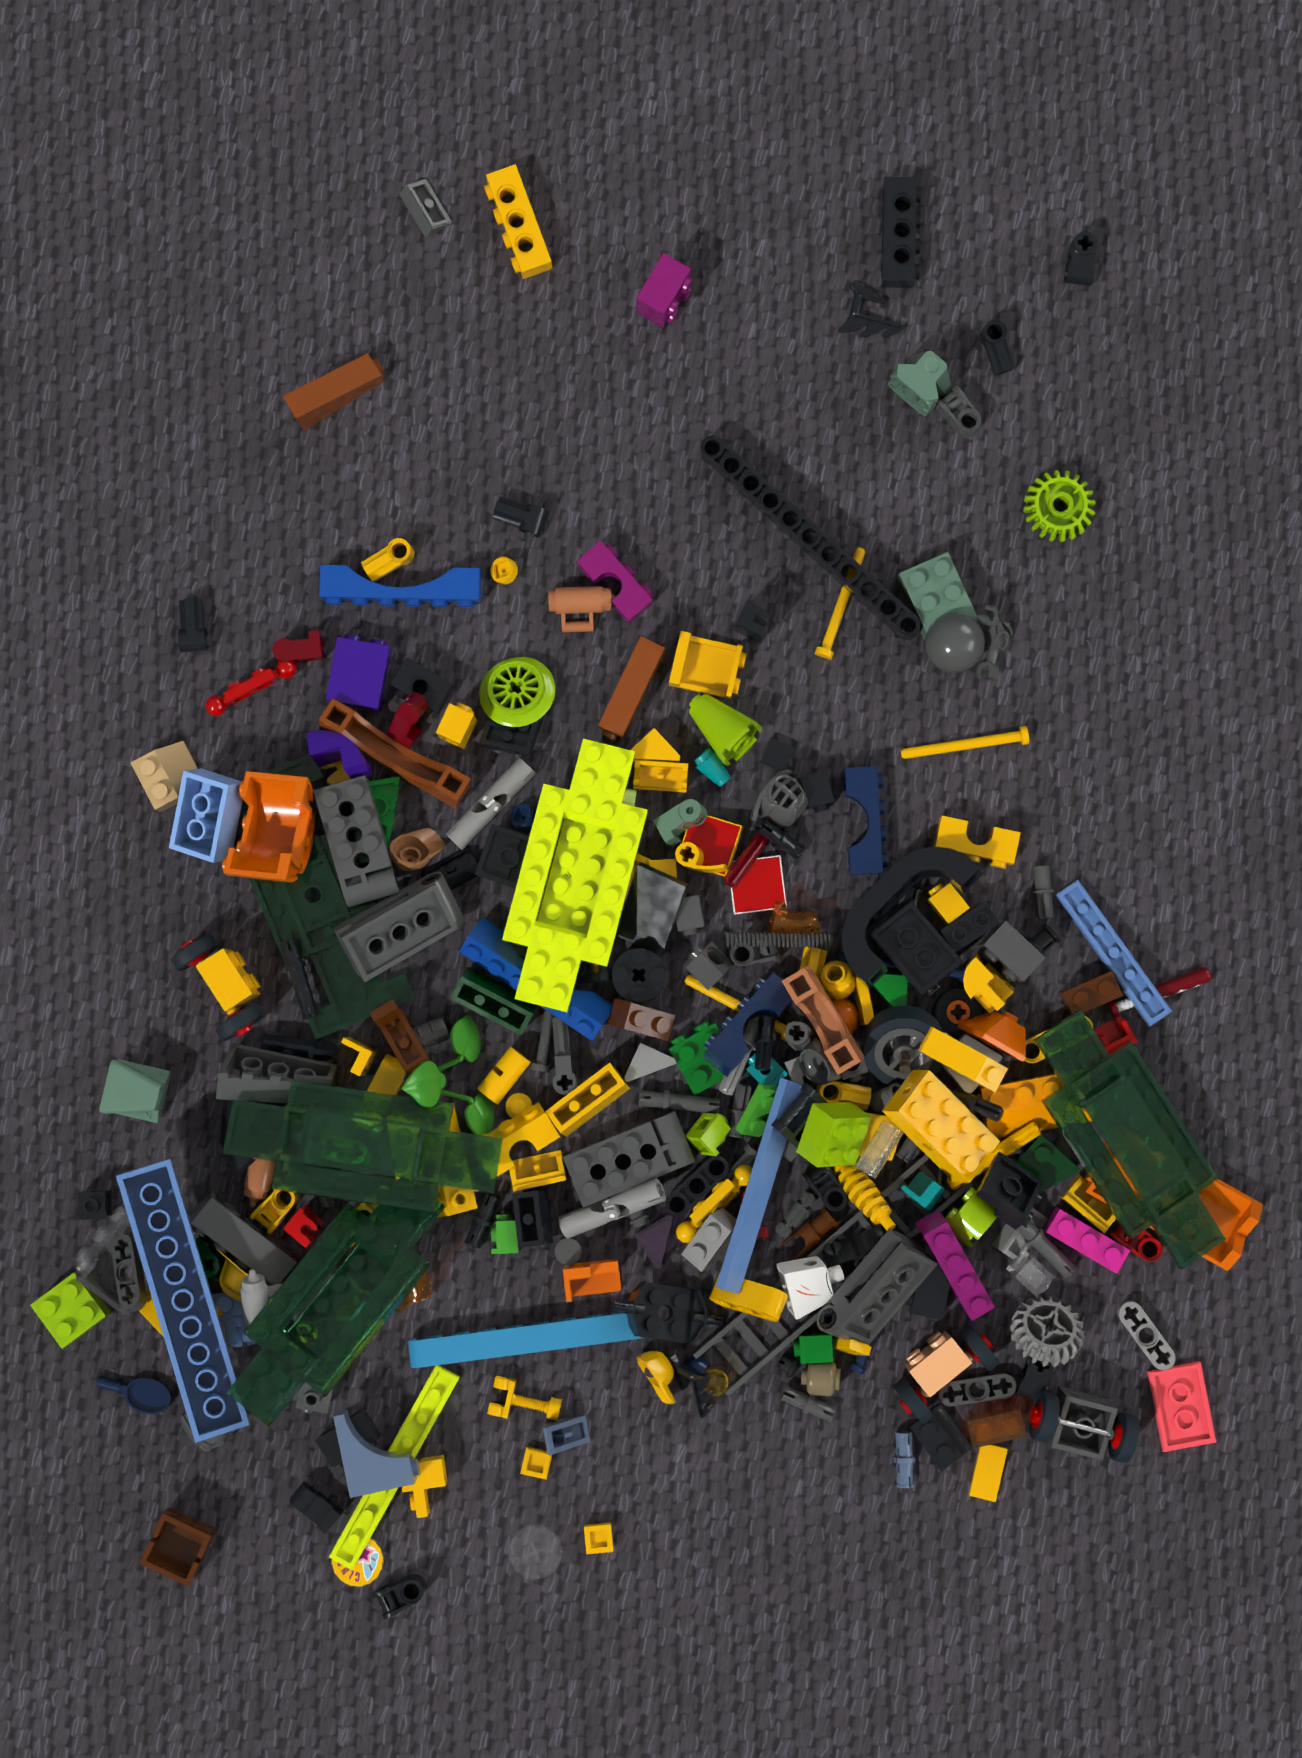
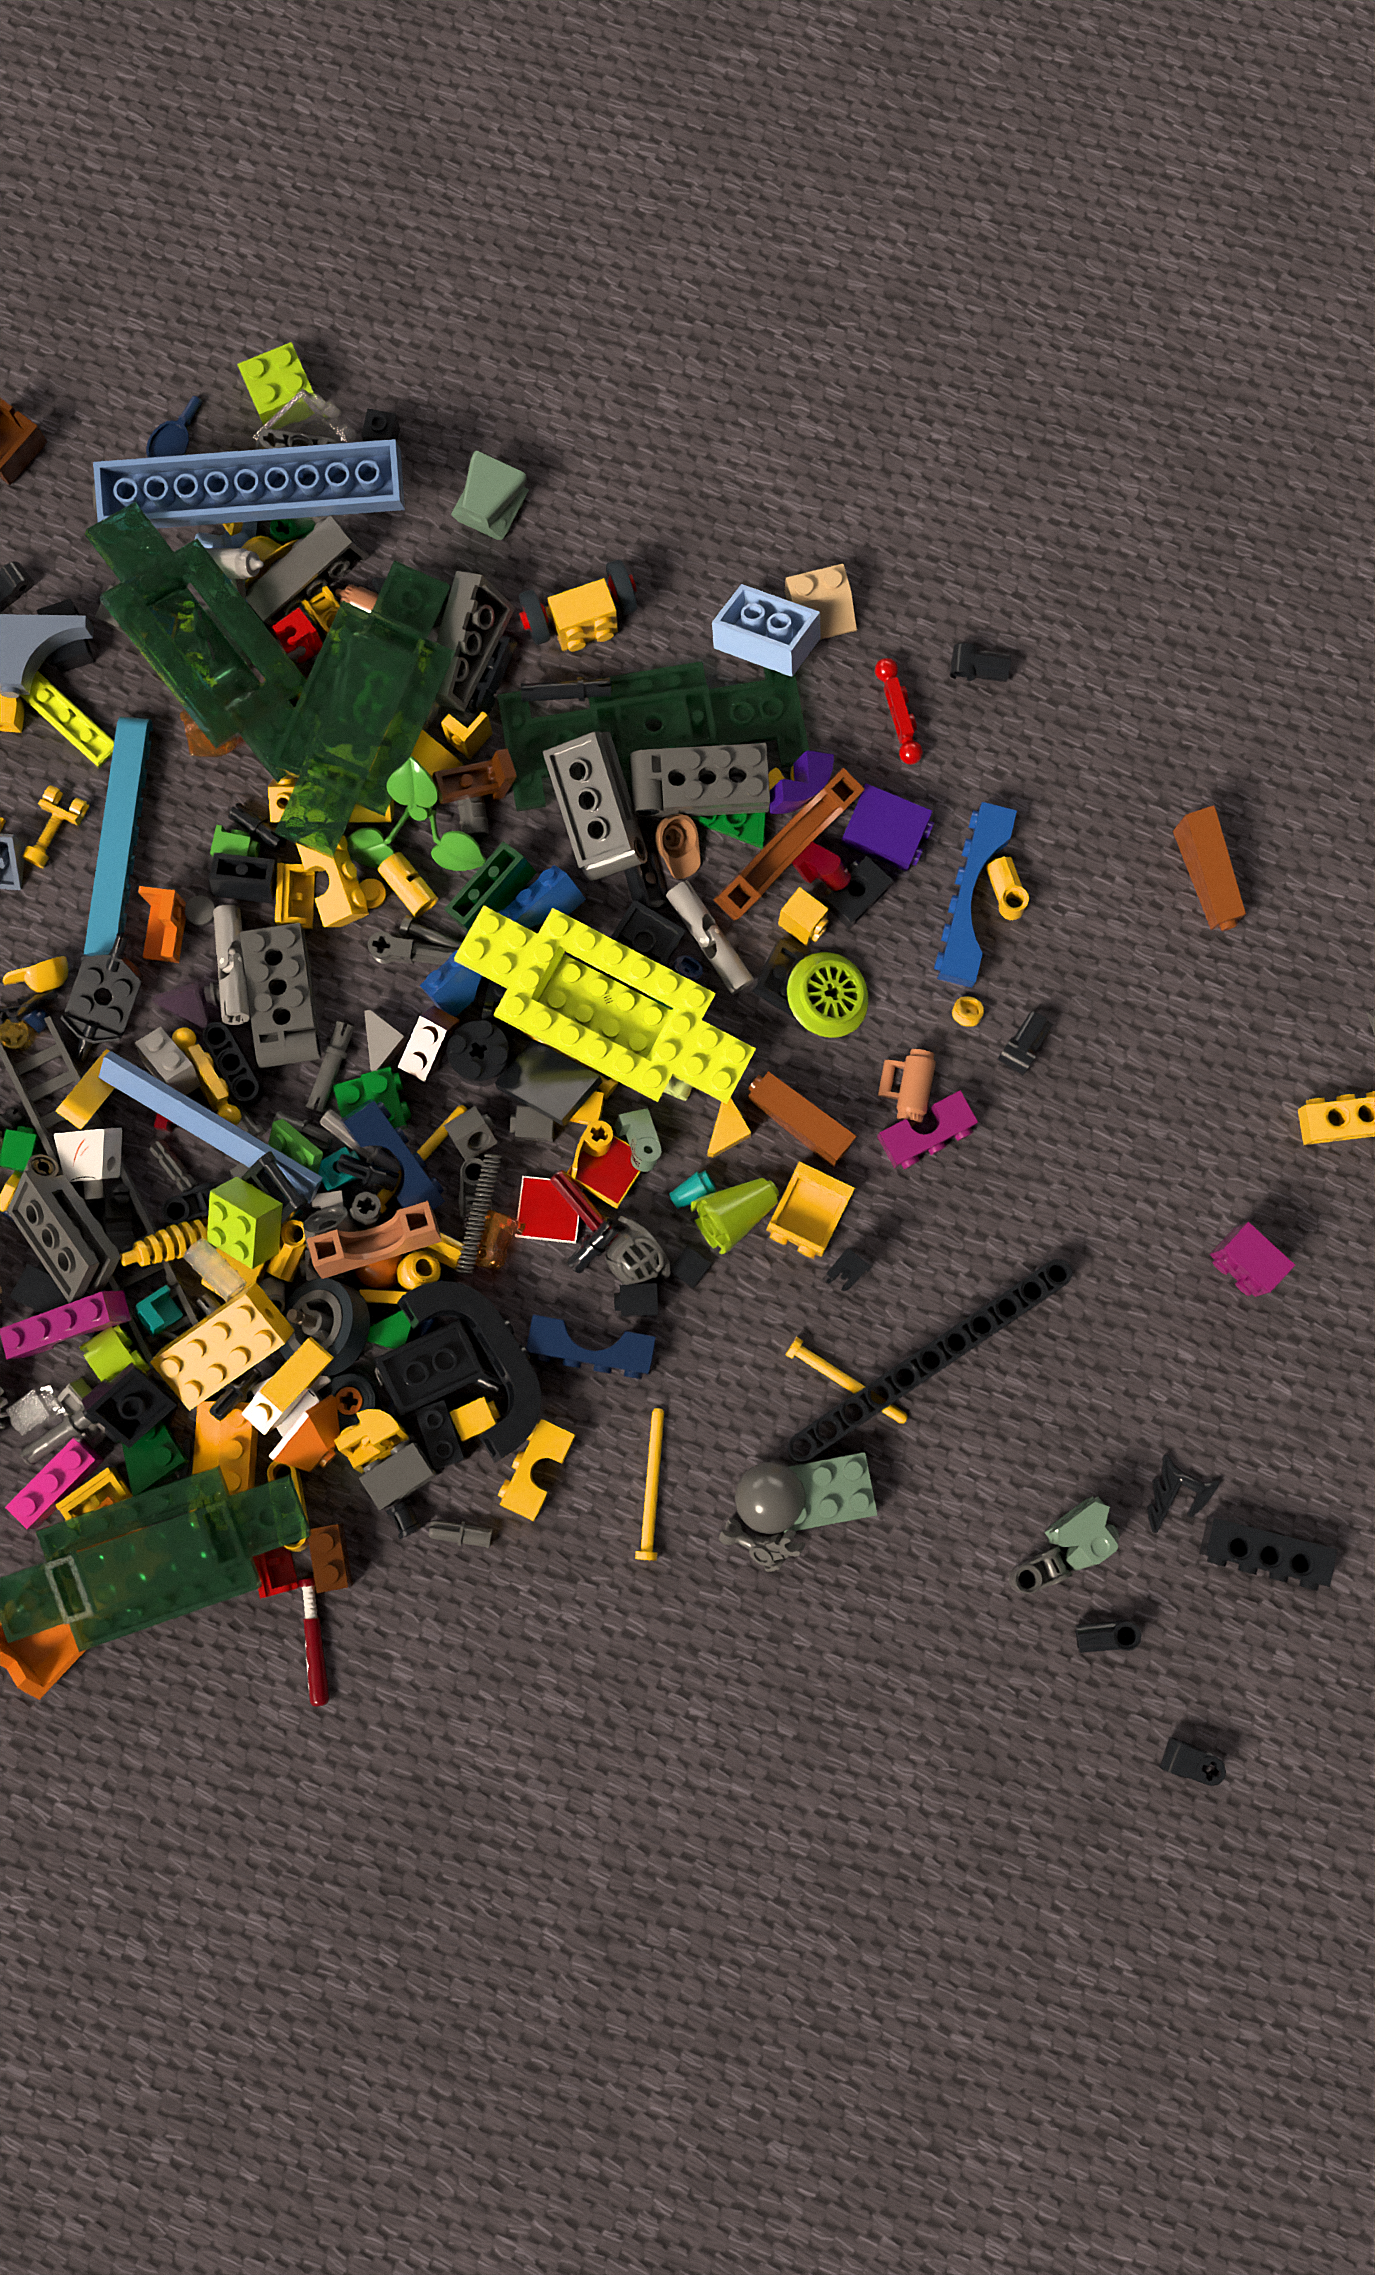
camera: 100 degrees right, 5 degrees down
(275, 830) = (730, 696): orange cylinder -> none
(300, 650) = (926, 772): dark red leg -> none
(587, 1100) = (356, 965): yellow brick -> none
(660, 776) = (696, 1130): yellow hinge -> none
(708, 1133) = (286, 1089): lime brick -> none
(813, 1231) = (148, 1180): reddish brown piece -> none
(1006, 1147) = (183, 1421): yellow axle -> none
(1064, 490) = (923, 1667): lime gear -> none
(1113, 953) = (369, 1597): medium blue tile -> none
(1135, 1244) = (30, 1539): red piece -> none

